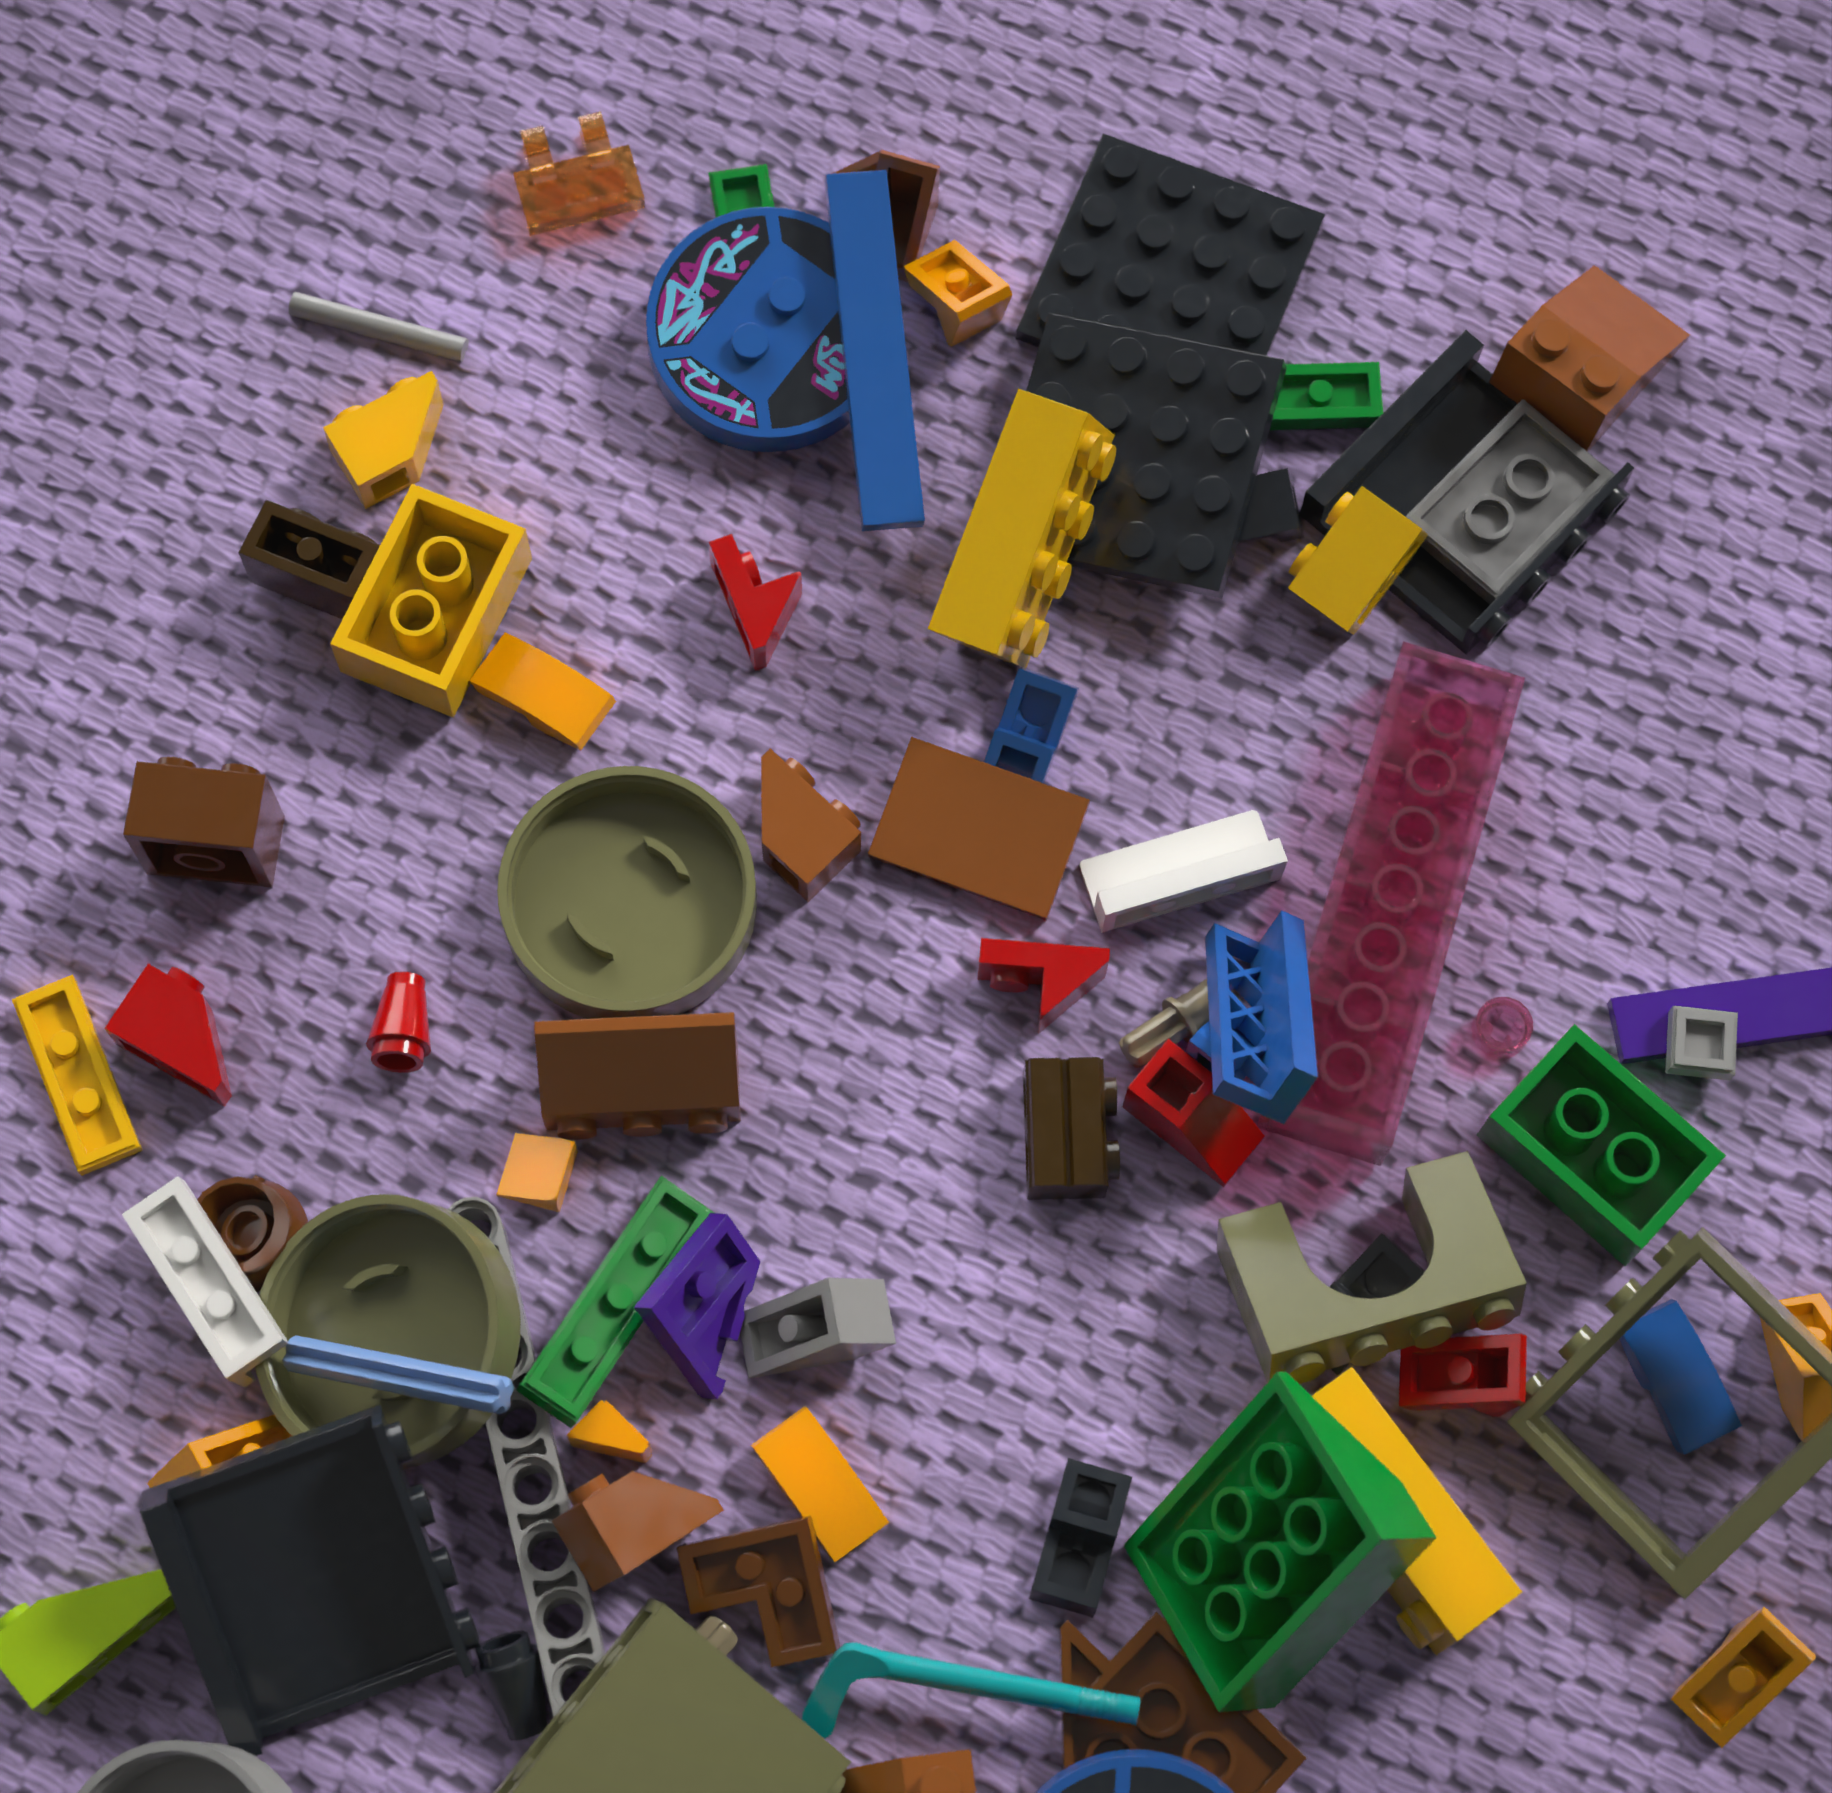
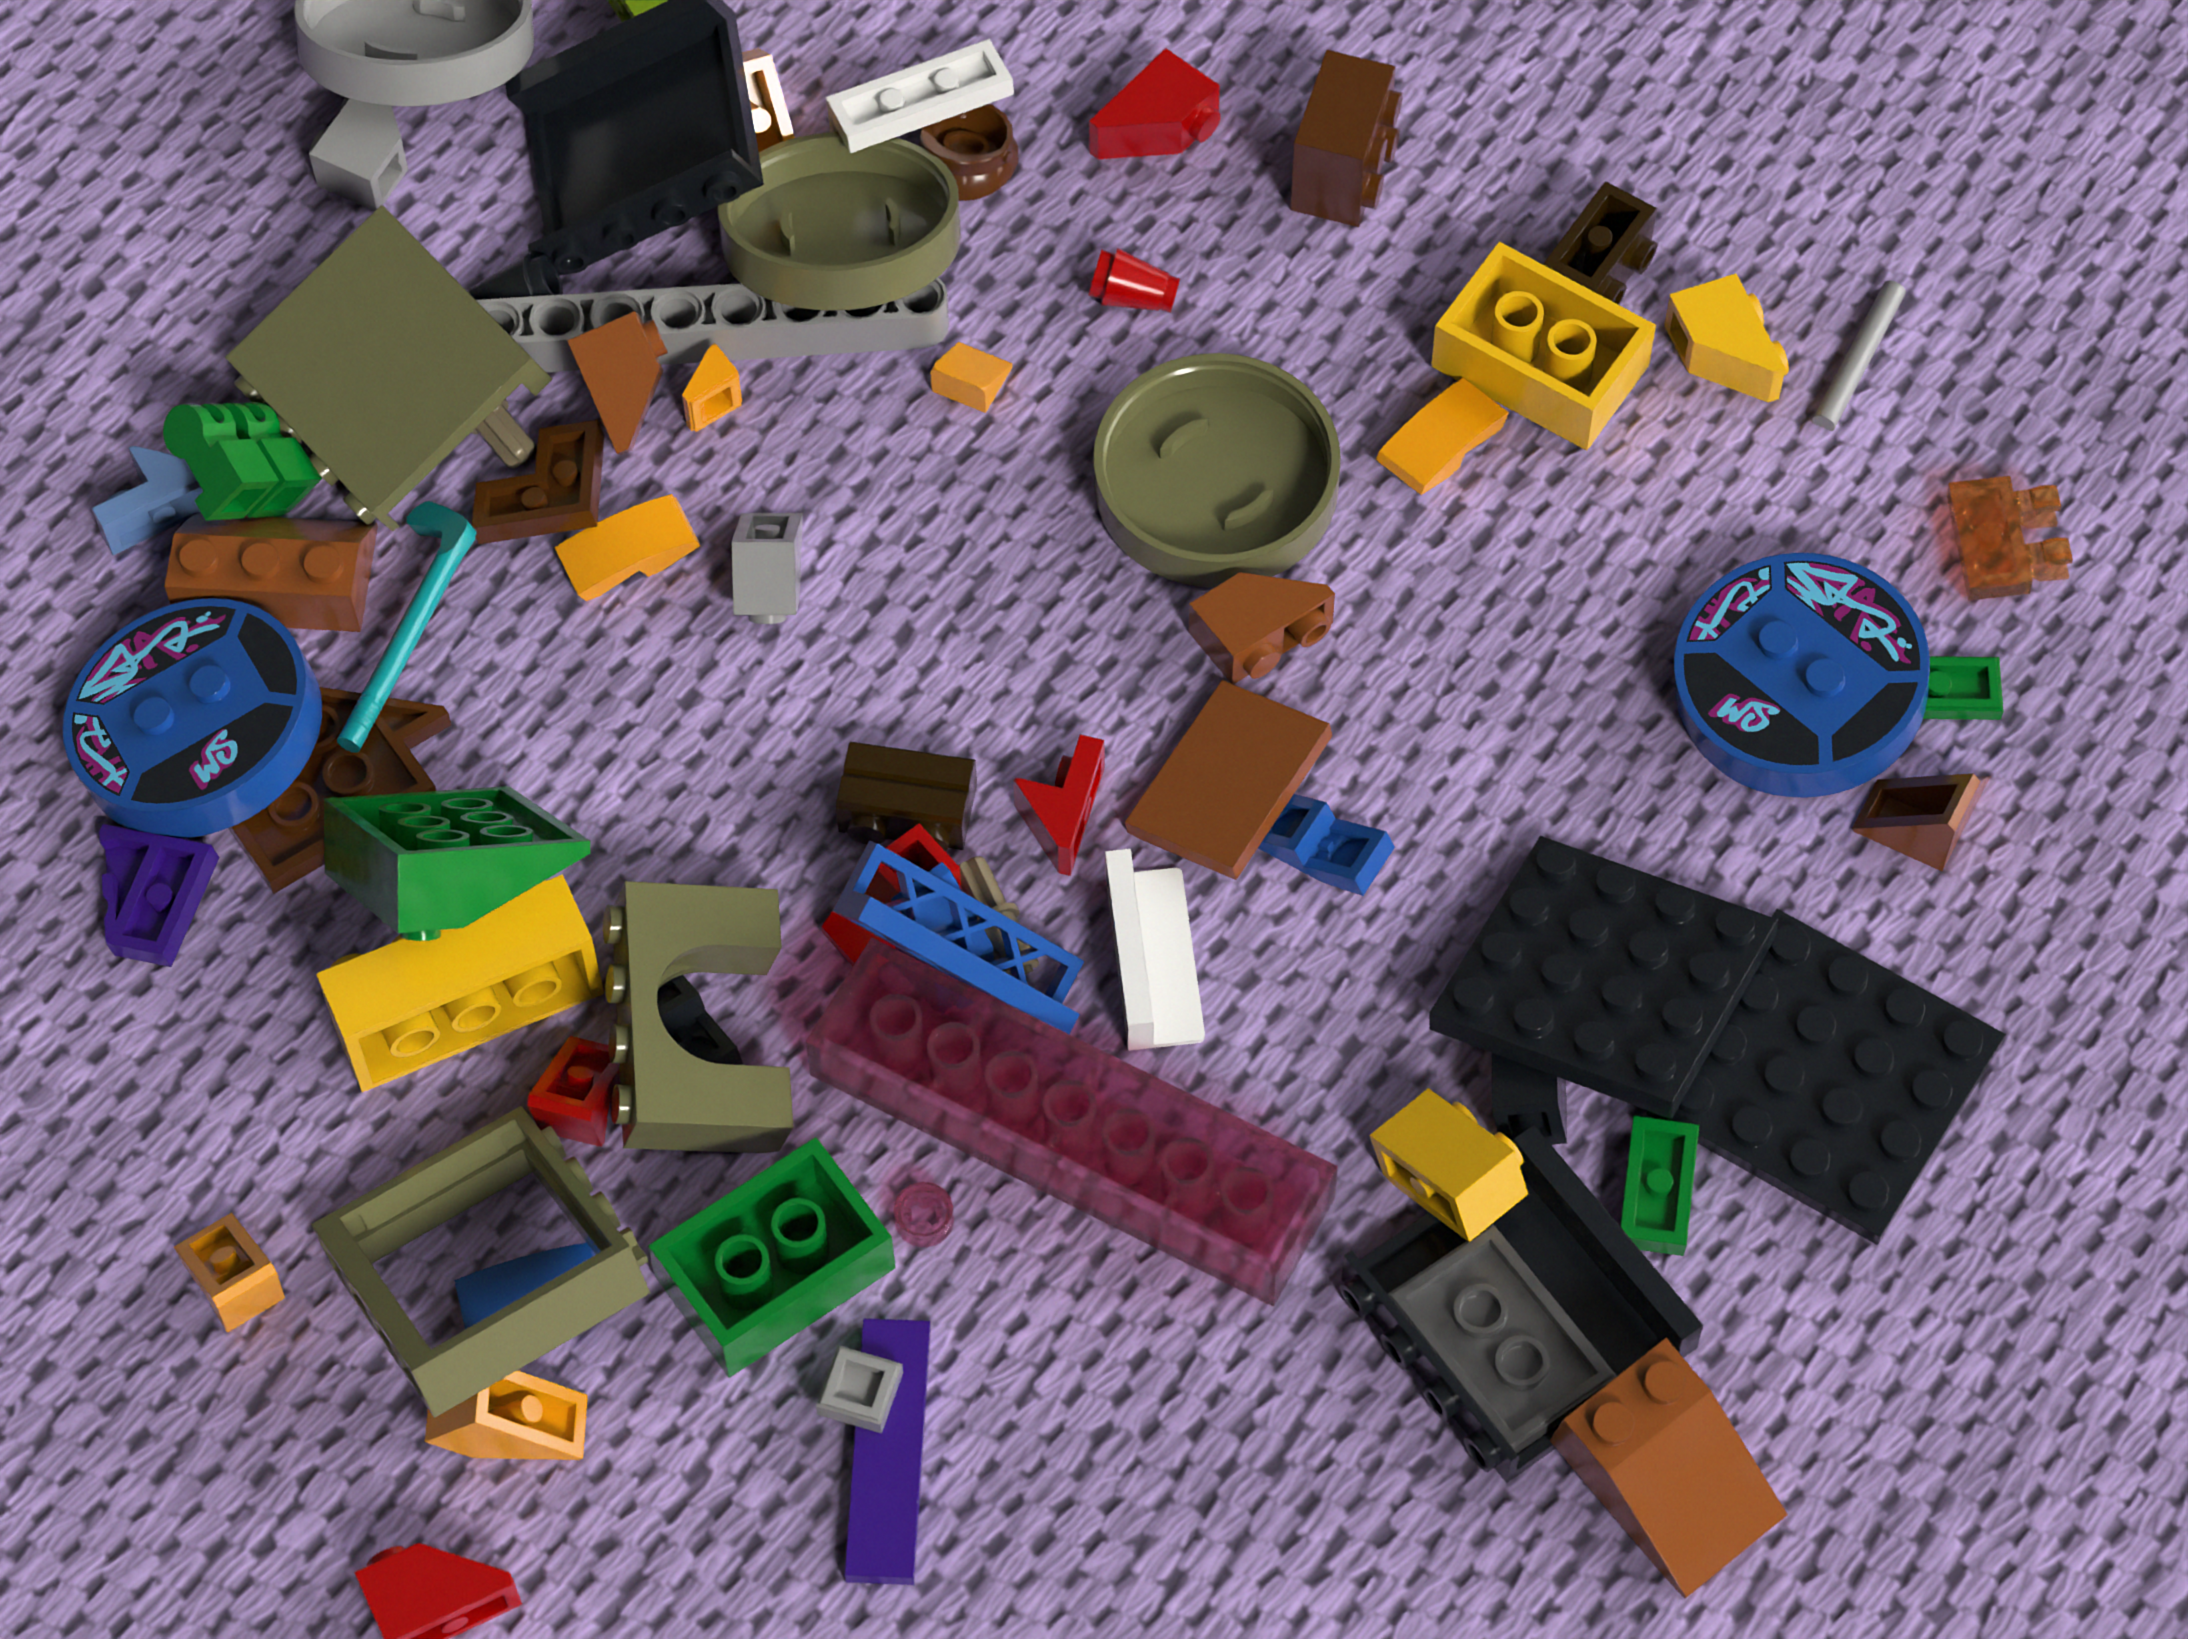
camera: 105 degrees right, 10 degrees down
(77, 1075) = (1128, 46): yellow tile -> none
(398, 1374) = (789, 207): medium blue axle -> none
(604, 1313) = (829, 403): green tile -> none
(638, 1074) = (1032, 447): dark orange slope -> none
(702, 1301) = (812, 470): dark purple wing -> none
(756, 608) = (1490, 617): red slope -> none
(874, 351) = (1754, 746): blue tile -> none
(960, 289) = (1823, 850): light orange slope -> none
(1024, 529) = (1516, 824): yellow brick -> none
(1080, 1537) = (526, 751): black slope -> none

